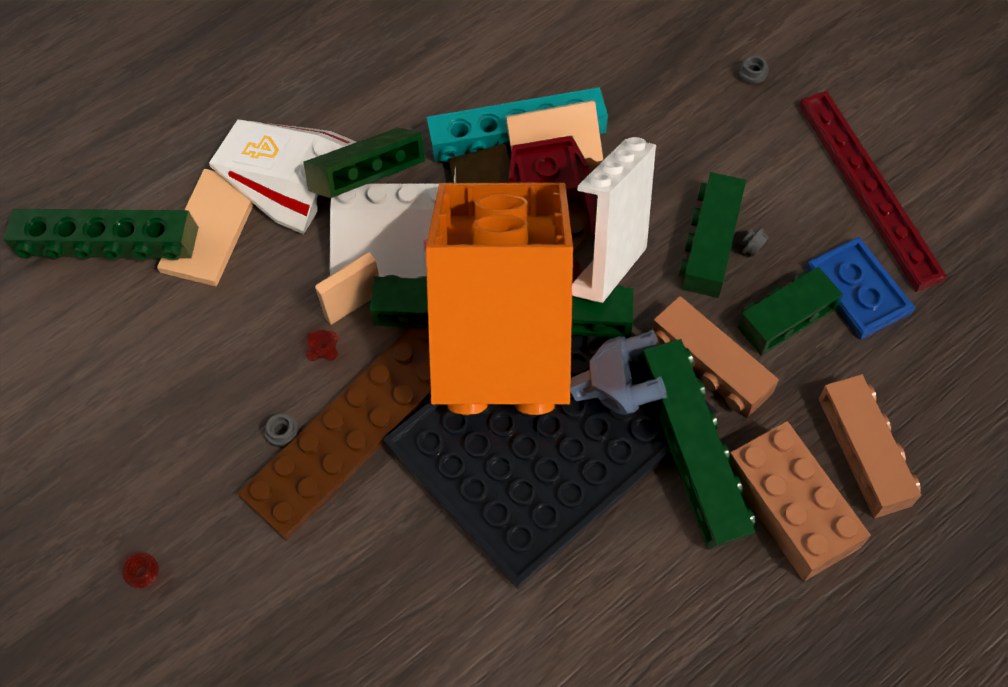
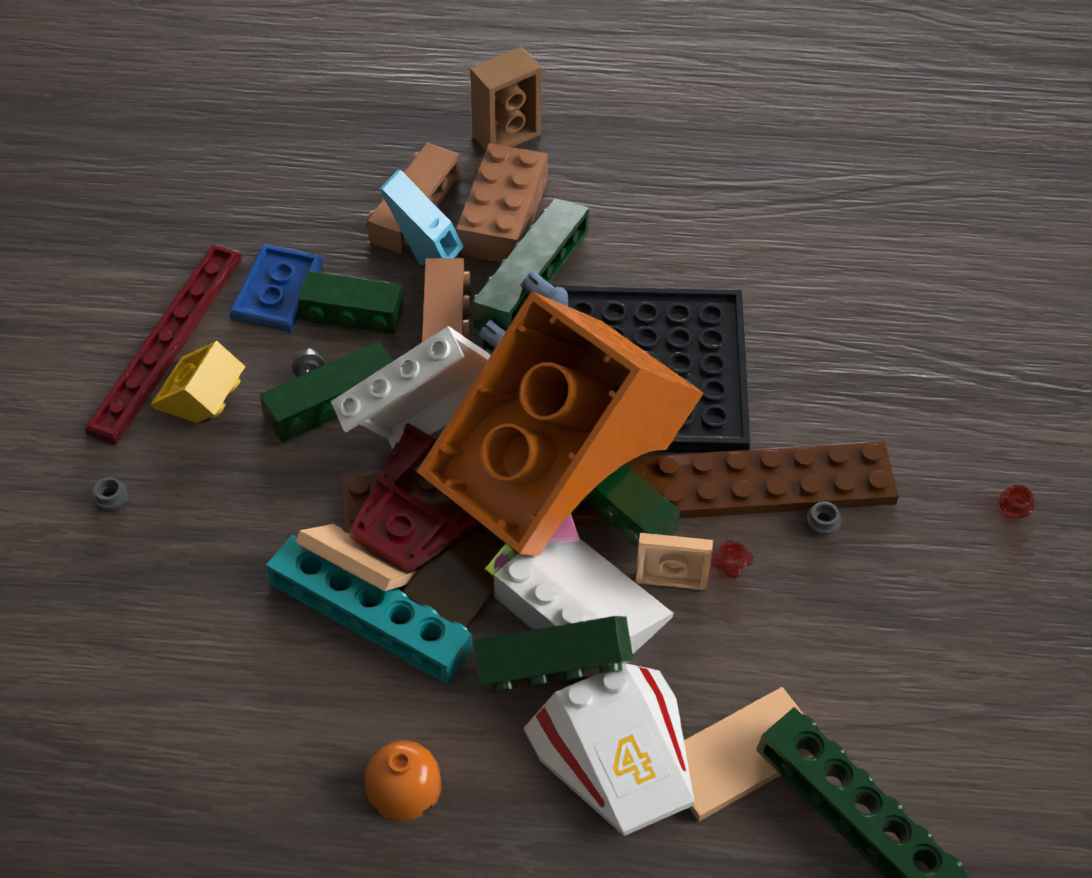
camera: 140 degrees left, 10 degrees down
(394, 62) = (402, 780): none -> orange cylinder
(799, 167) = (199, 384): none -> yellow slope
(817, 394) = (421, 222): none -> medium azure slope
(911, 586) = (506, 99): none -> medium nougat brick

